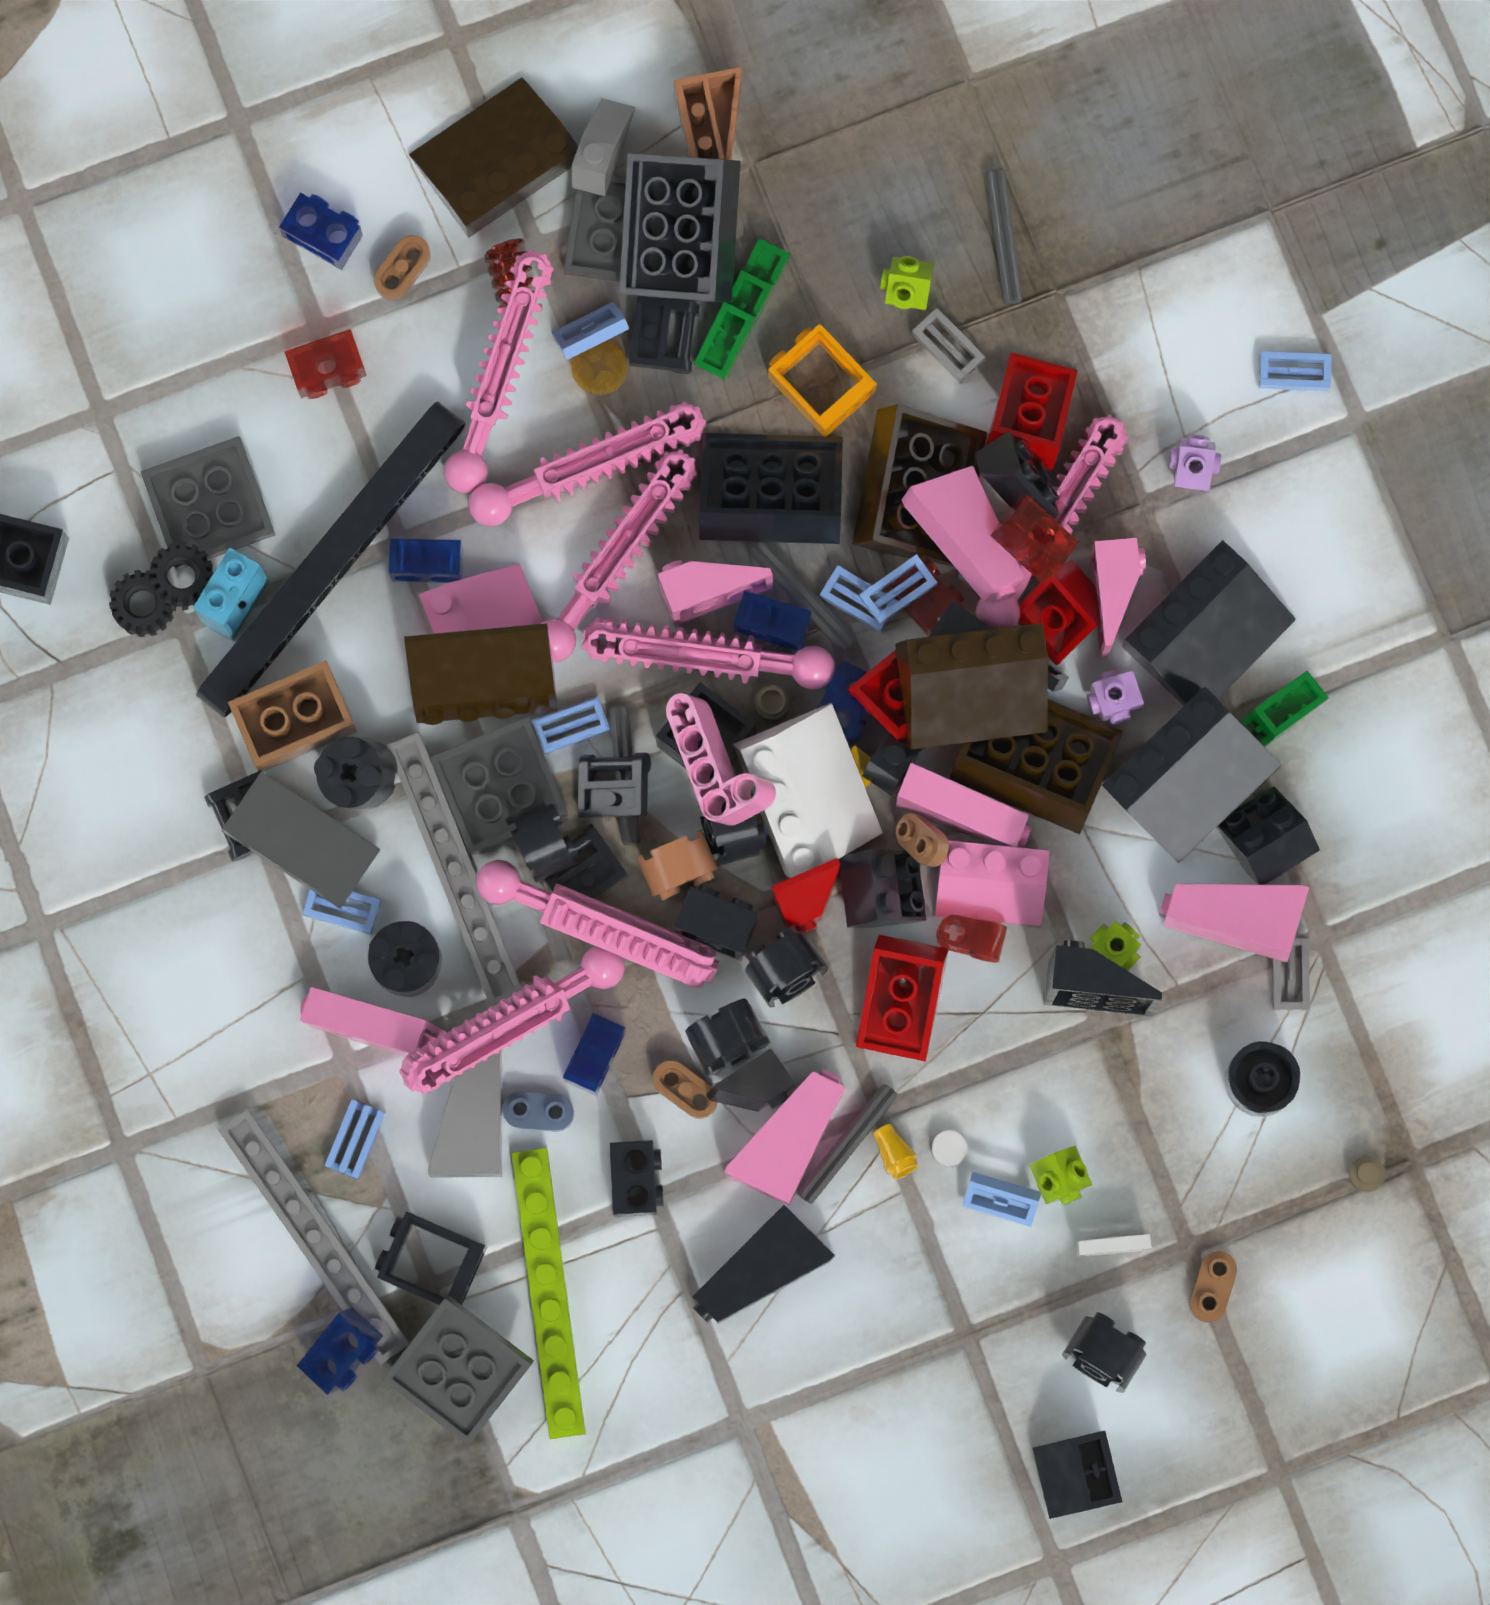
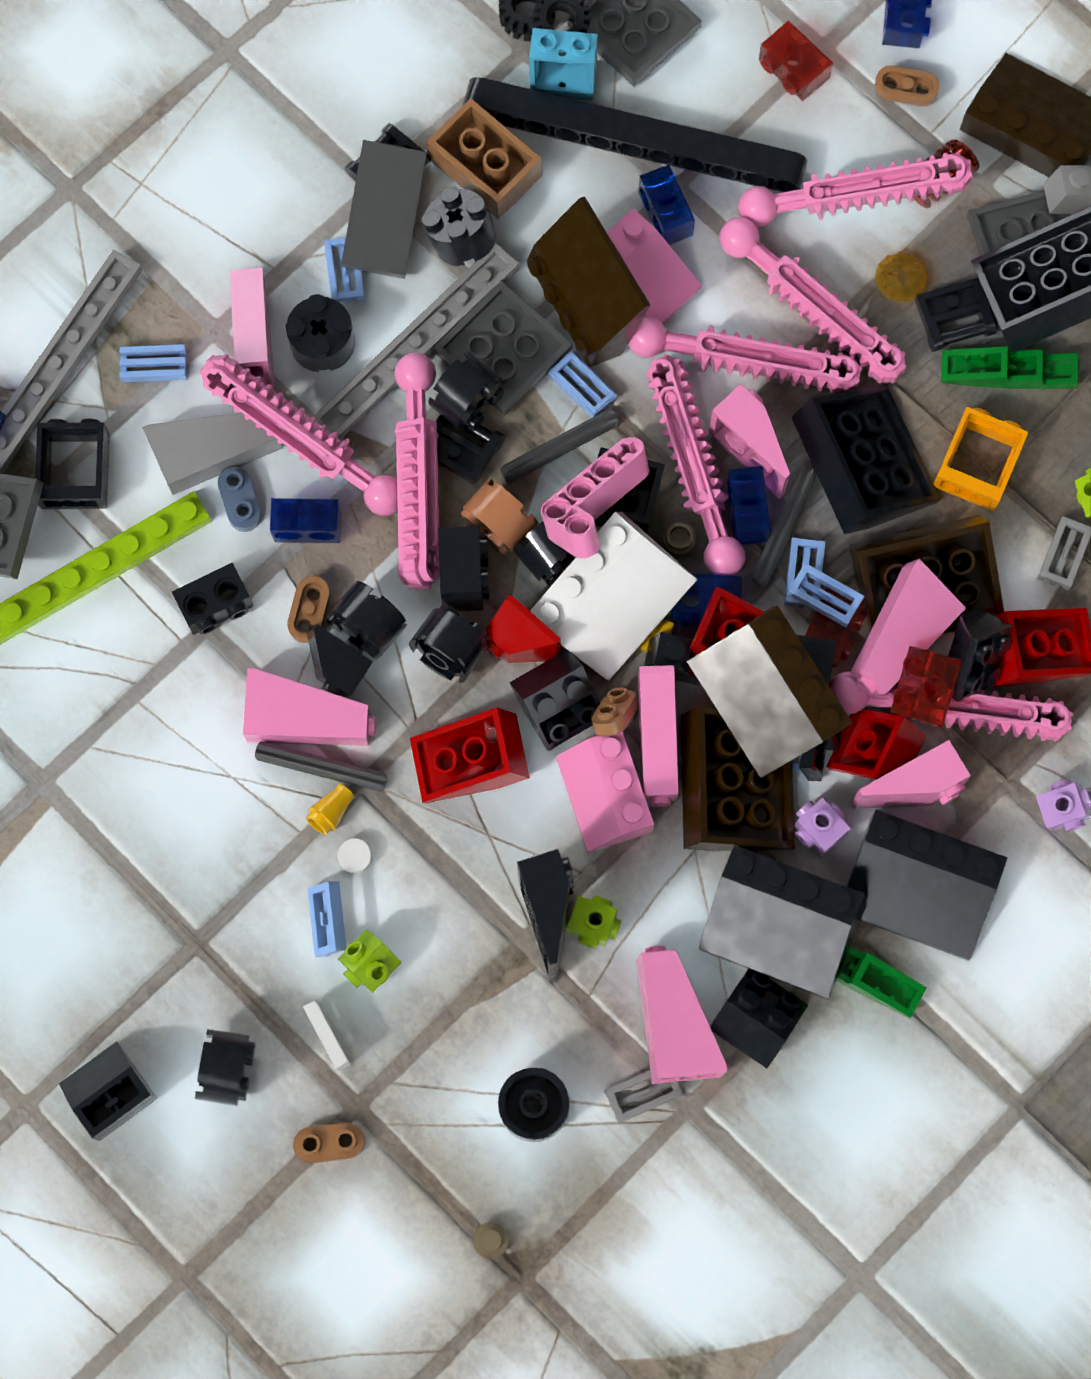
camera: 65 degrees right, 5 degrees down
(590, 330) = (928, 254): light blue tile -> none
(615, 797) = (534, 441): black plate -> none
(765, 1264) = (186, 741): black slope -> none
(979, 937) = (549, 799): clear red piece -> none

